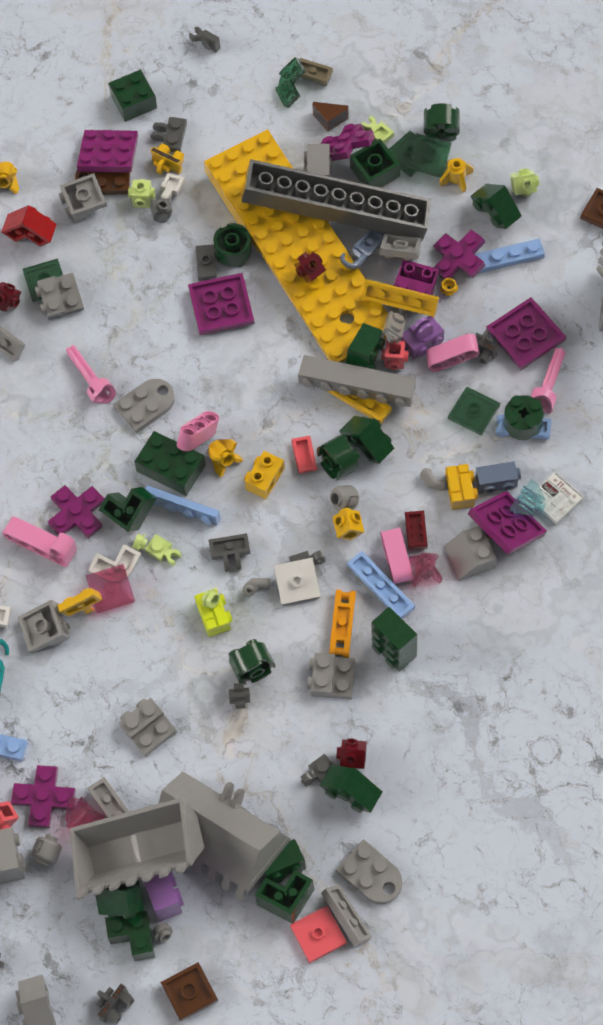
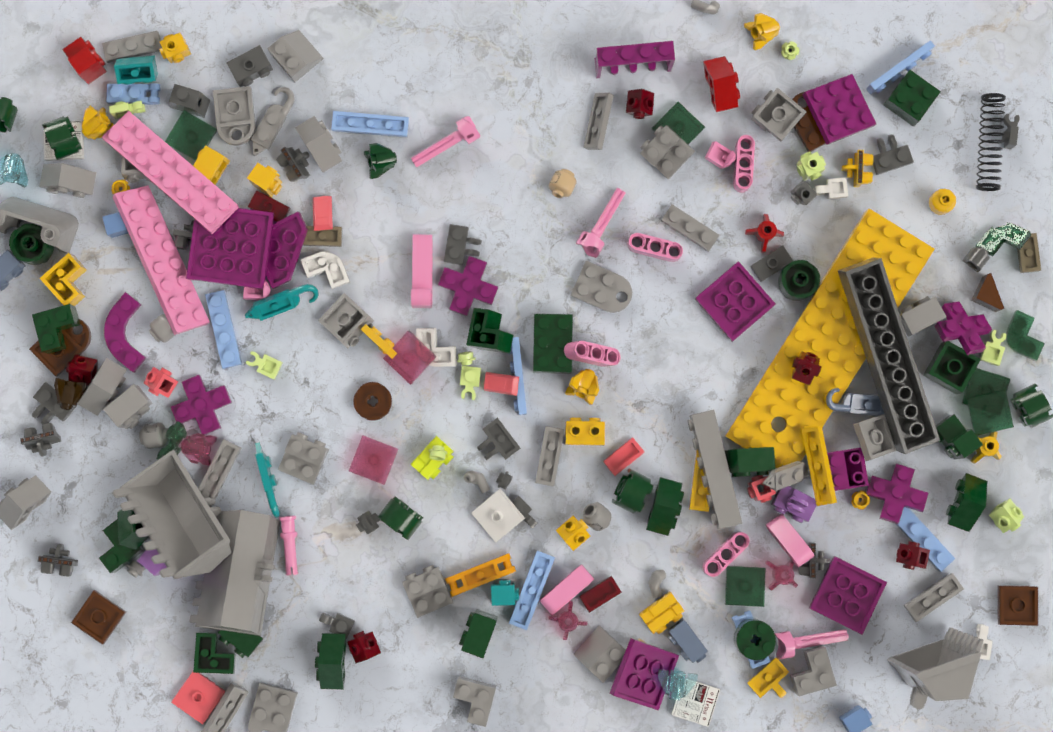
camera: 55 degrees right, 20 degrees up
(33, 503) = (456, 245): none -> dark grey hinge
(34, 390) = (562, 183): none -> tan head
(35, 171) = (790, 55): none -> yellowish green plate
(42, 717) = (267, 365): none -> yellowish green plate
(57, 825) = (174, 437): none -> clear green plate
(89, 257) = (720, 155): none -> bright pink plate
(103, 236) = (747, 155): none -> bright pink beam
(104, 99) = (907, 64): none -> light blue plate
(135, 650) = (364, 394): none -> reddish brown plate
(136, 310) = (690, 228): none -> light grey plate
(138, 335) = (645, 249): none -> bright pink beam
(147, 766) = (268, 480): none -> teal plate
(176, 253) = (761, 235): none -> red brick
(180, 521) = (501, 383): none -> coral tile
(185, 665) = (373, 460): none -> clear pink plate
(211, 773) = (288, 535): none -> bright pink pin
(232, 111) = (942, 201): none -> yellow head
(236, 73) = (985, 97): none -> black piece
(267, 562) = (504, 480): none -> dark grey plate
(268, 514) = (549, 456): none -> light grey plate
(294, 105) = (976, 258): none -> dark grey plate
(369, 604) = (504, 593): none -> teal brick
(379, 109) = (1018, 337): none -> clear green plate
(436, 403) = (734, 550): none -> bright pink beam
(439, 188) = (956, 439): none -> dark green brick
(454, 674) = (480, 696): none -> light grey brick
(479, 375) = (776, 574): none -> clear pink brick
(518, 266) = (912, 555): none -> dark red brick
(563, 269) = (933, 597): none -> light grey plate
(566, 428) = (768, 678): none -> yellow plate
(580, 384) = (819, 673): none -> light grey brick

